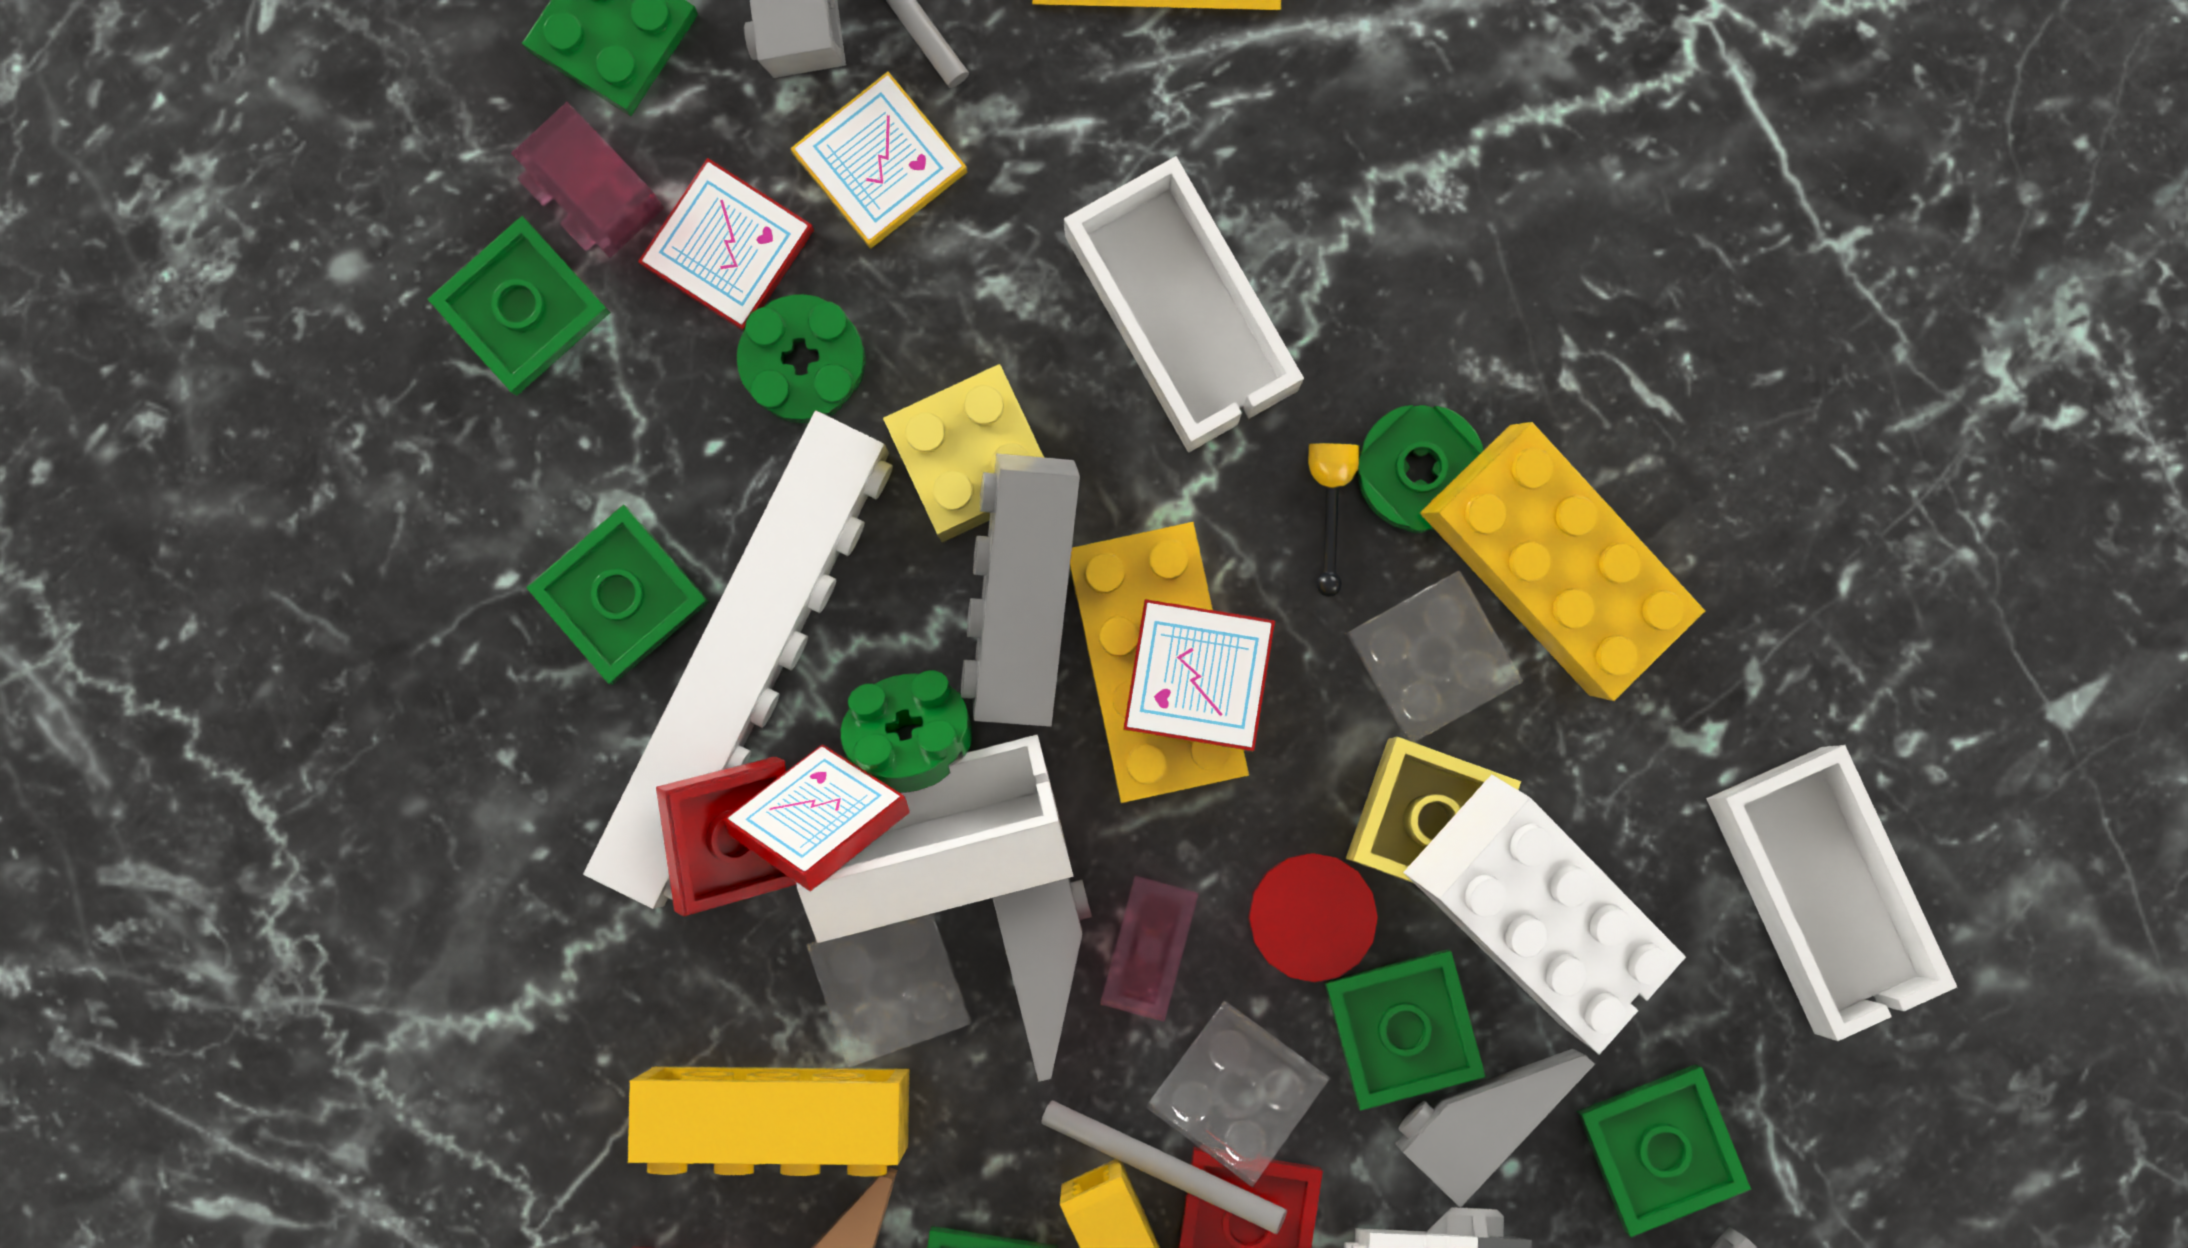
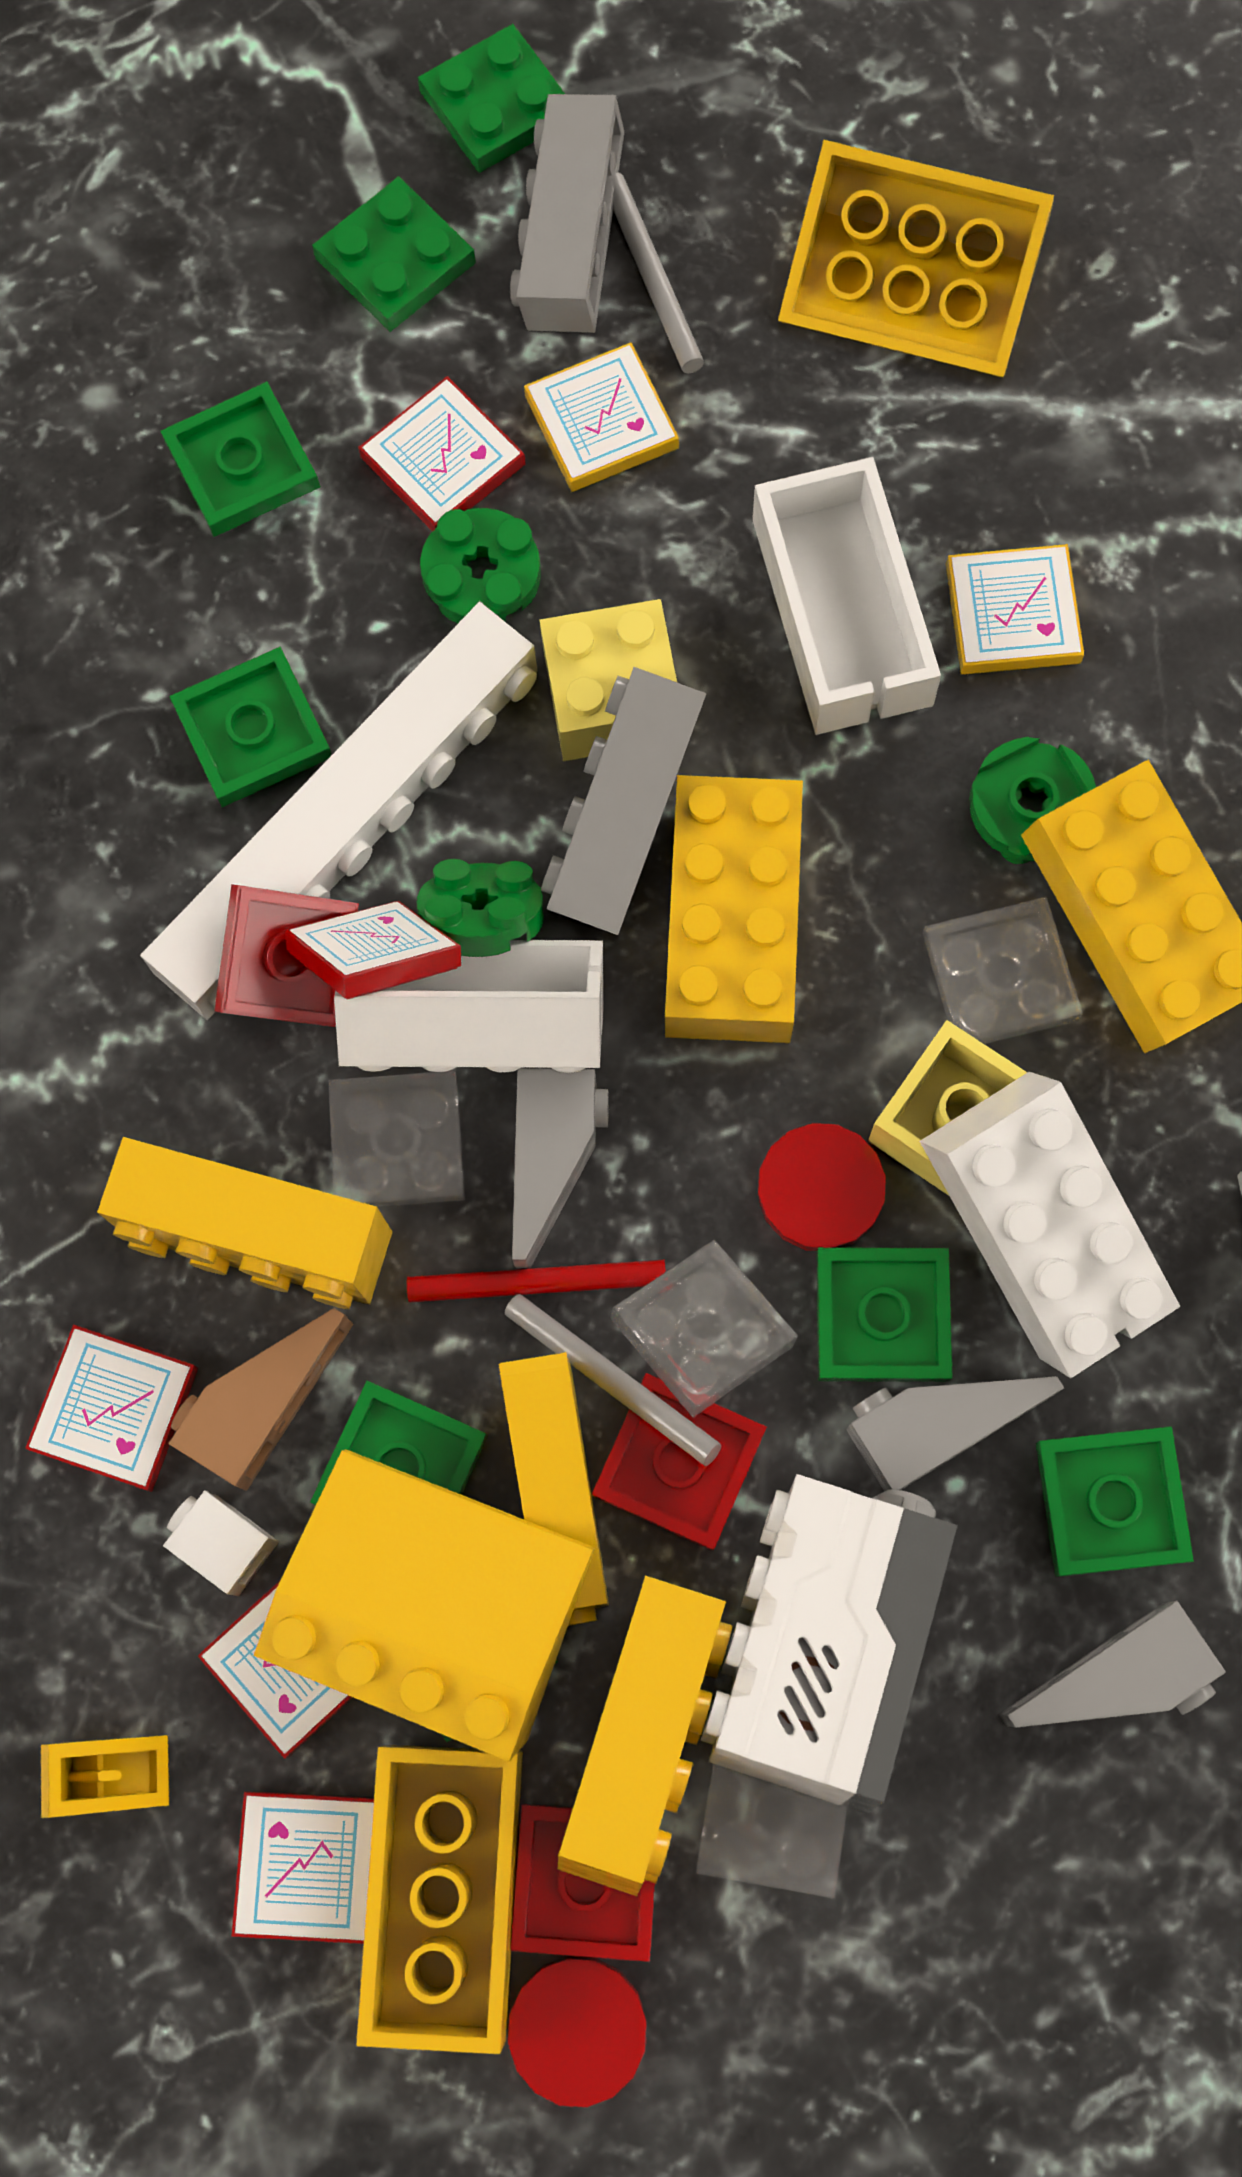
camera: 20 degrees right, 10 degrees down
(587, 180) = (334, 368): clear pink brick -> none
(1062, 1083) = (533, 1281): none -> red bar
(1148, 947) = (654, 1162): clear pink brick -> none
(1199, 675) = (770, 911): white tile -> none
(1332, 467) = (949, 778): hinge -> none
(1353, 265) = (1014, 609): none -> white tile

